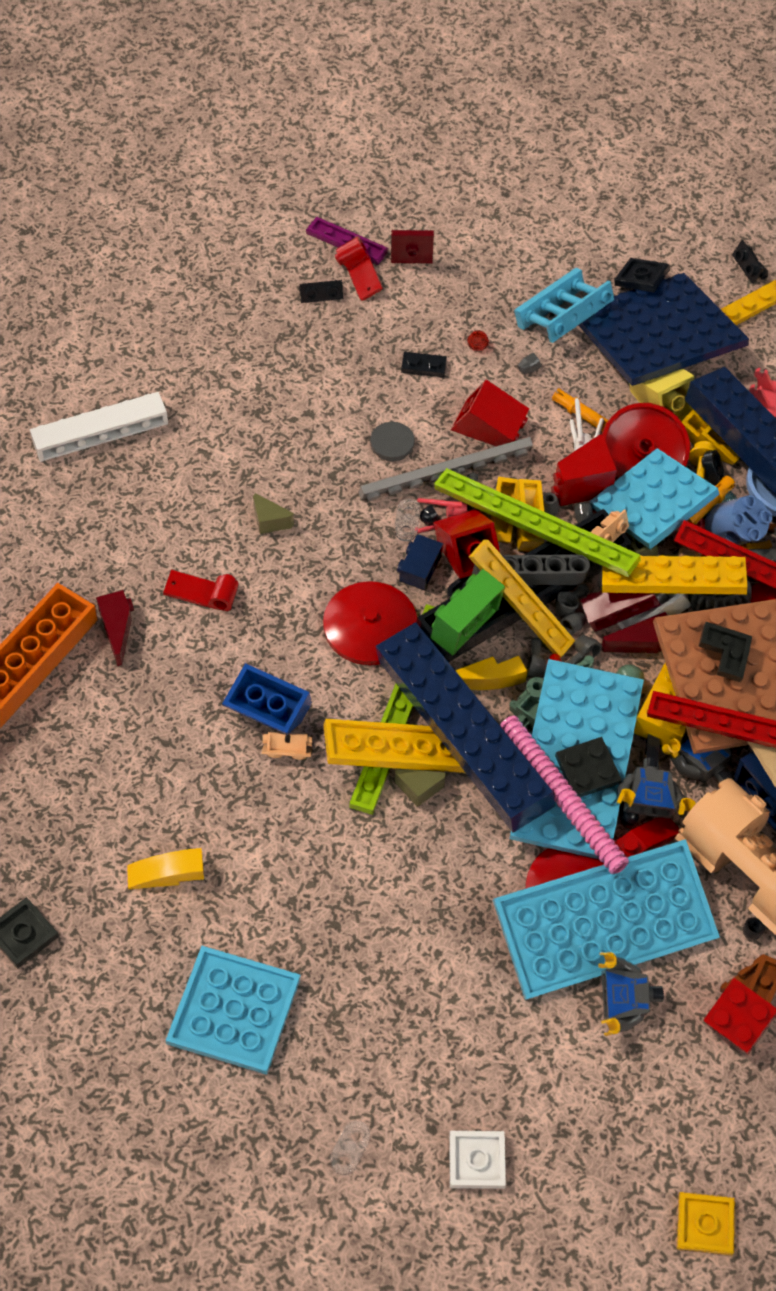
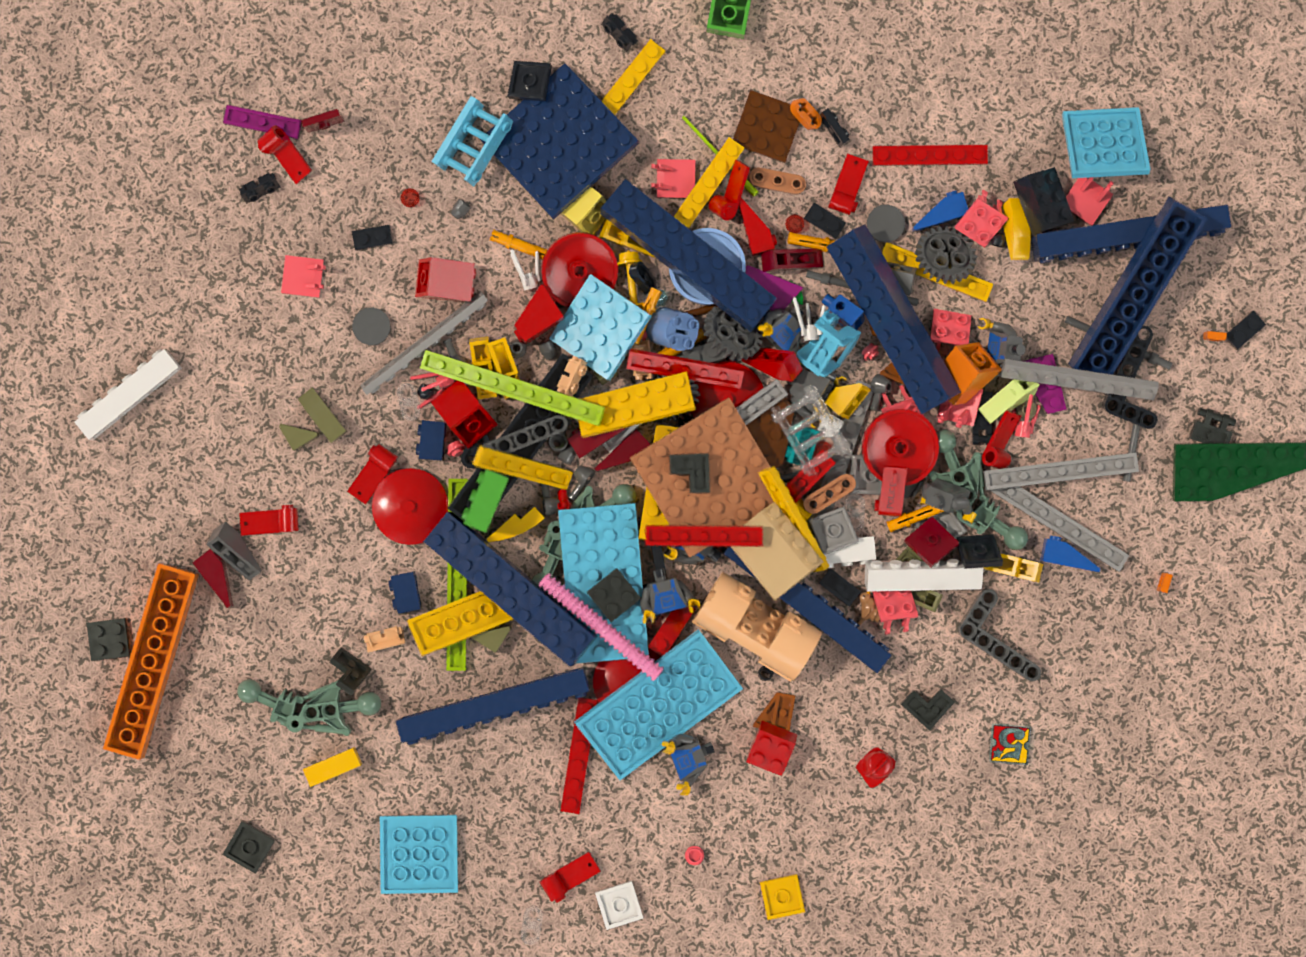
camera: 15 degrees left, 30 degrees up
(138, 793) = (286, 705): none -> sand green piece
(149, 603) = (233, 549): none -> dark grey slope
(231, 767) = (353, 670): none -> pearl dark grey plate
(268, 699) = (356, 609): blue slope -> none
(306, 506) = (322, 415): none -> olive slope
(332, 701) = (405, 592): none -> dark blue brick
(335, 376) = (302, 276): none -> coral plate
(353, 568) = (375, 470): none -> red door
(395, 854) = (493, 704): none -> dark blue brick
(420, 1102) = (569, 876): none -> red door
(444, 578) = (455, 449): none -> coral plate
(474, 969) = (577, 762): none -> red plate
(598, 1128) = (694, 855): none -> coral plate

